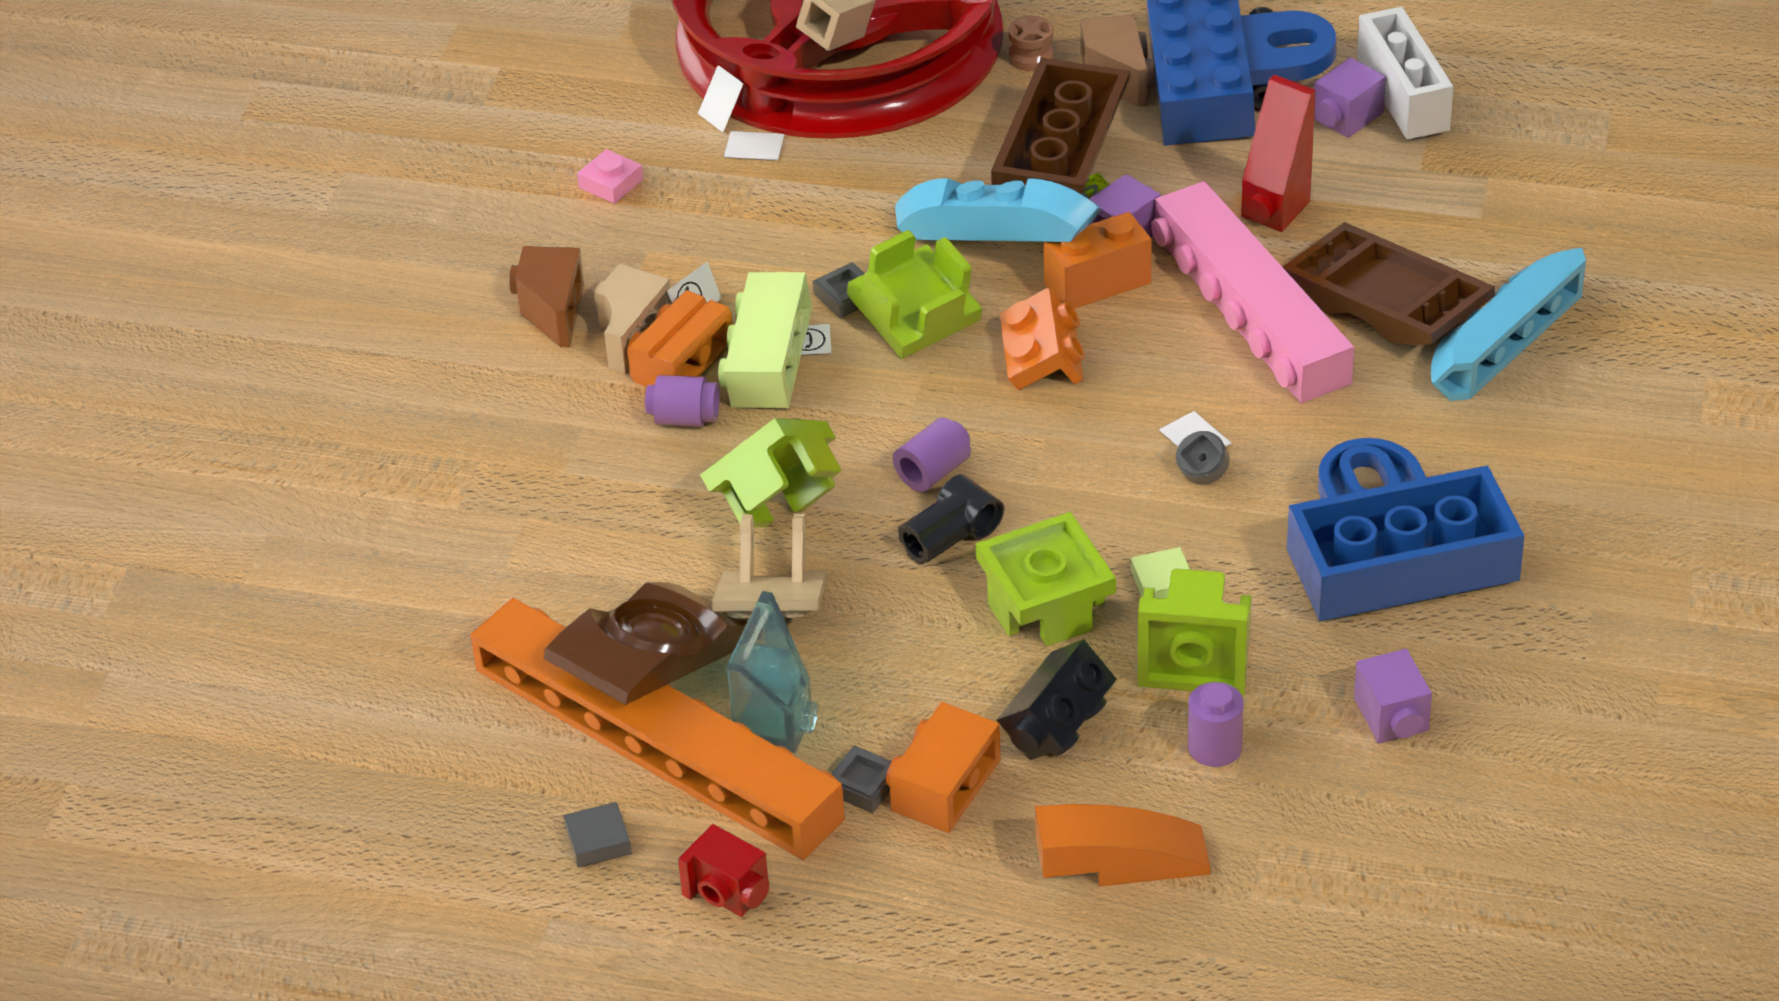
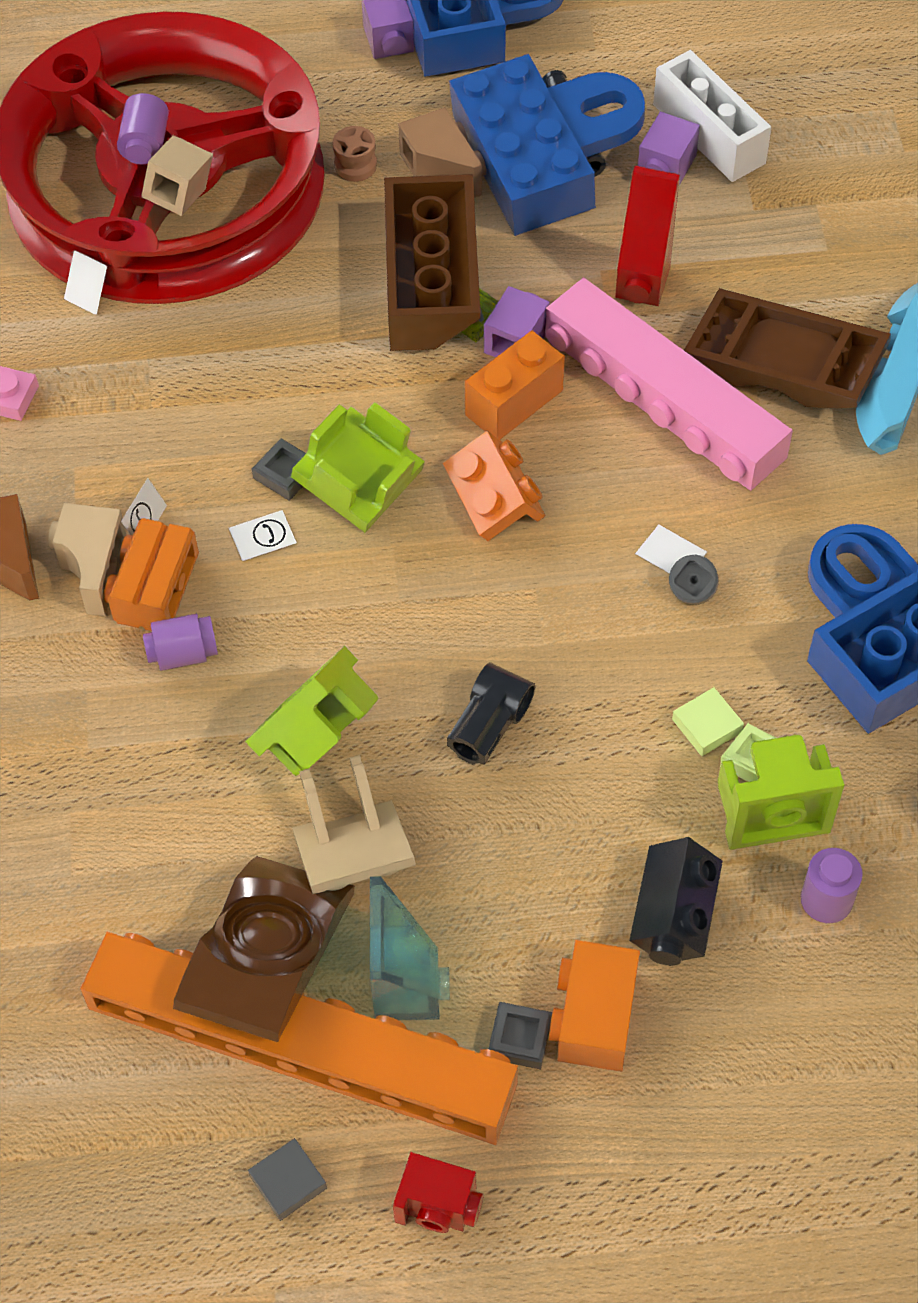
camera: 20 degrees left, 15 degrees up
(754, 145) = (132, 323): white sticker -> none
(766, 340) = (235, 551): yellowish green brick -> none
(932, 454) = (444, 642): medium lavender brick -> none
(994, 212) = (406, 359): medium azure brick -> none
(1046, 576) = (611, 761): lime panel -> none
(1118, 843) = (794, 1049): orange slope -> none

